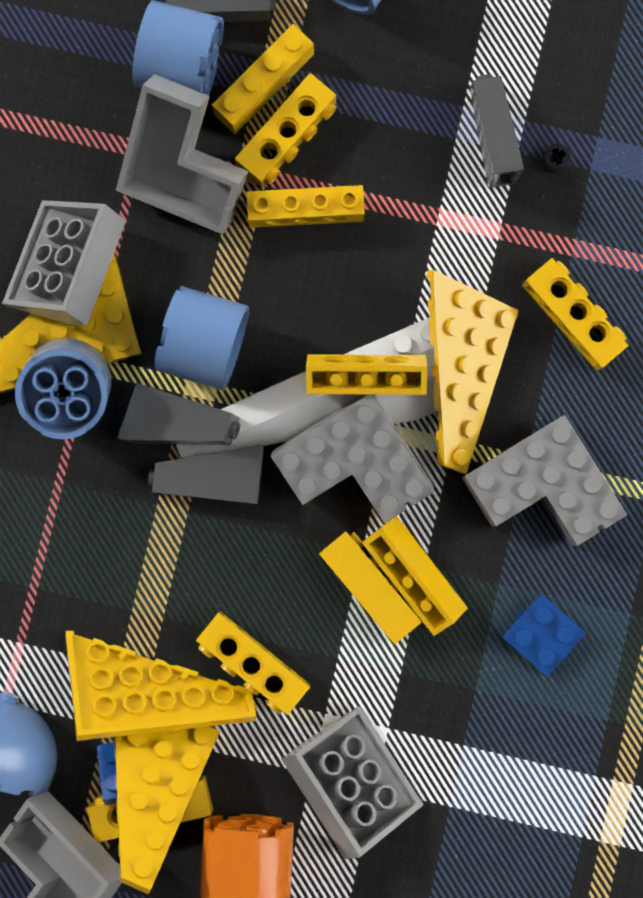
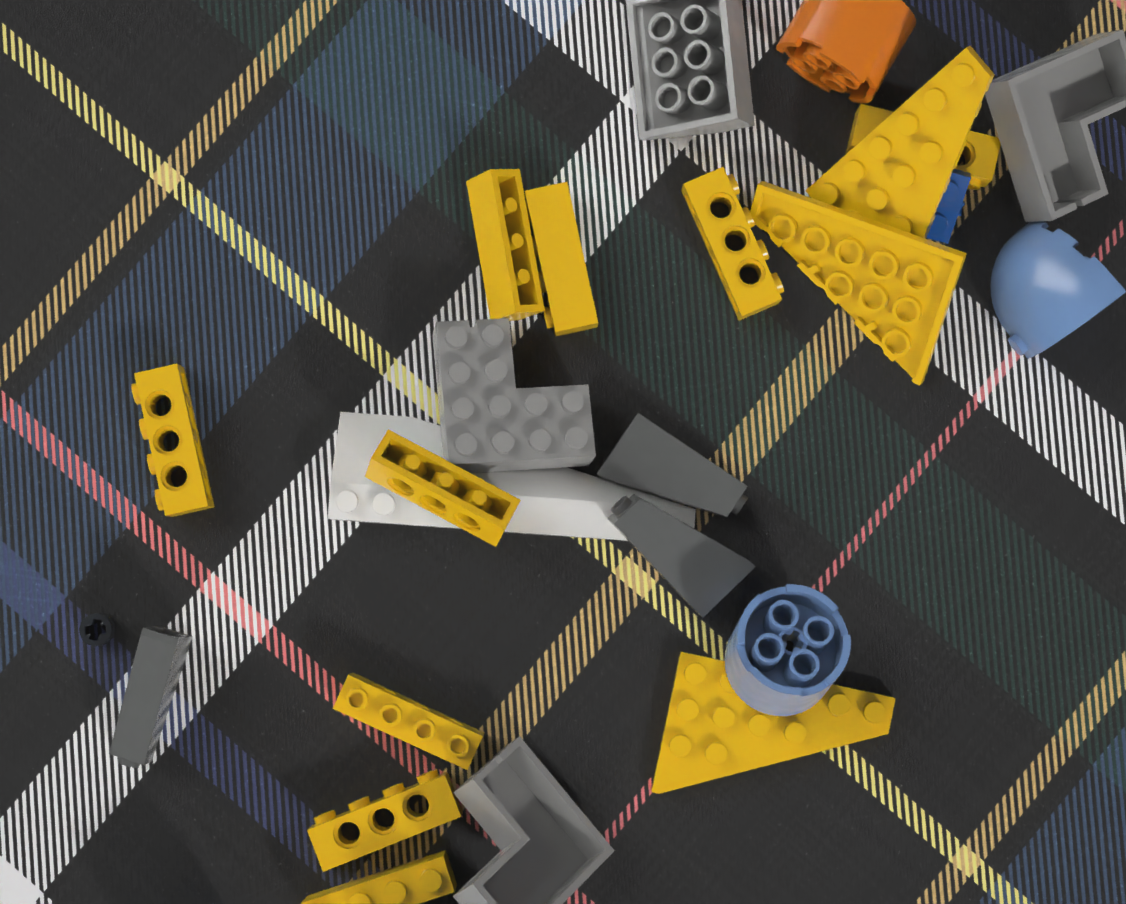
camera: 150 degrees left, 0 degrees up
(65, 261) = (713, 799): light grey slope -> none
(201, 338) = (604, 627): medium blue brick -> none
(469, 347) = (309, 467): yellow wing -> none
(544, 634) = (398, 111): blue plate -> none
(549, 467) = (296, 288): light grey piece -> none

